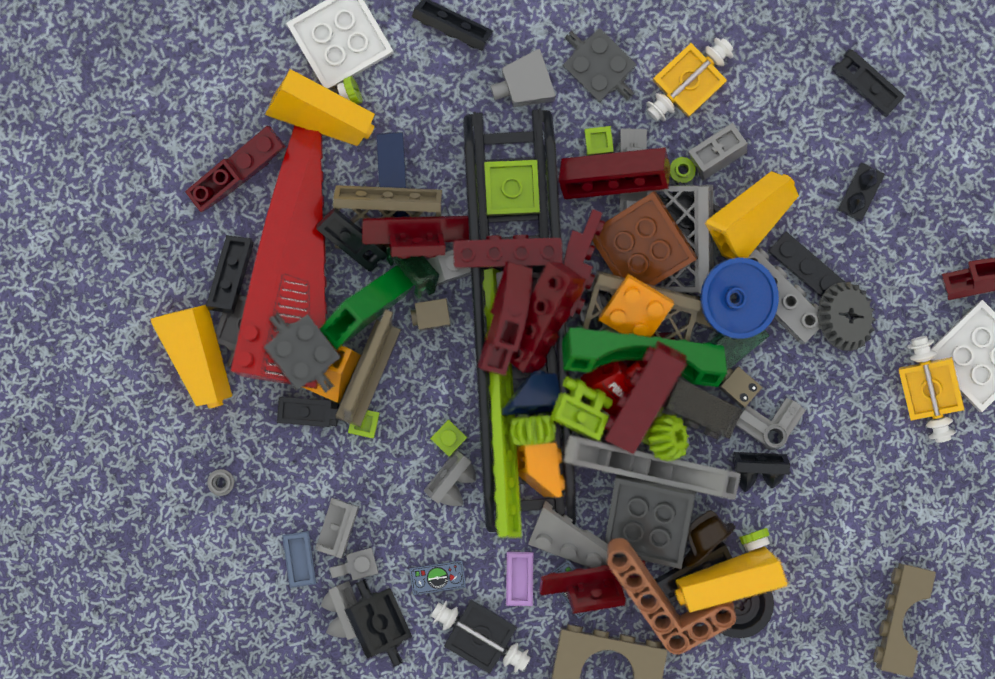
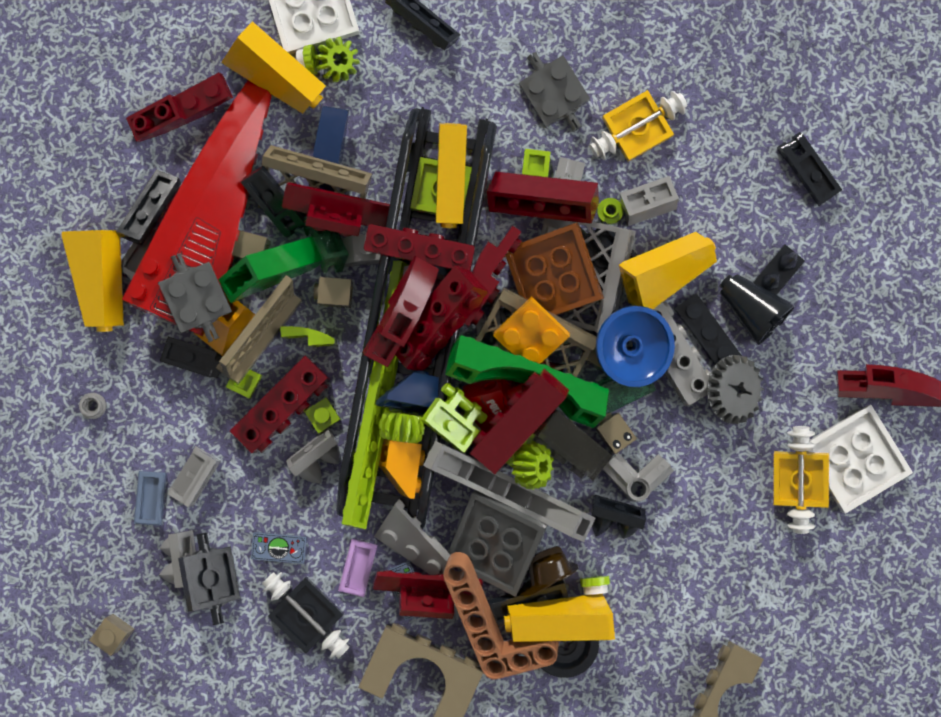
camera: 10 degrees right, 0 degrees up
(339, 289) = (249, 244): none -> dark tan brick
(359, 564) = (206, 516): light grey plate -> none
(387, 80) = (332, 49): none -> lime gear
(405, 438) = (280, 405): none -> dark red brick
(424, 363) = (315, 338): none -> lime slope
(519, 171) = (451, 174): none -> yellow slope
(525, 81) = (479, 90): light grey torso -> none
(846, 231) = (754, 306): none -> black cone

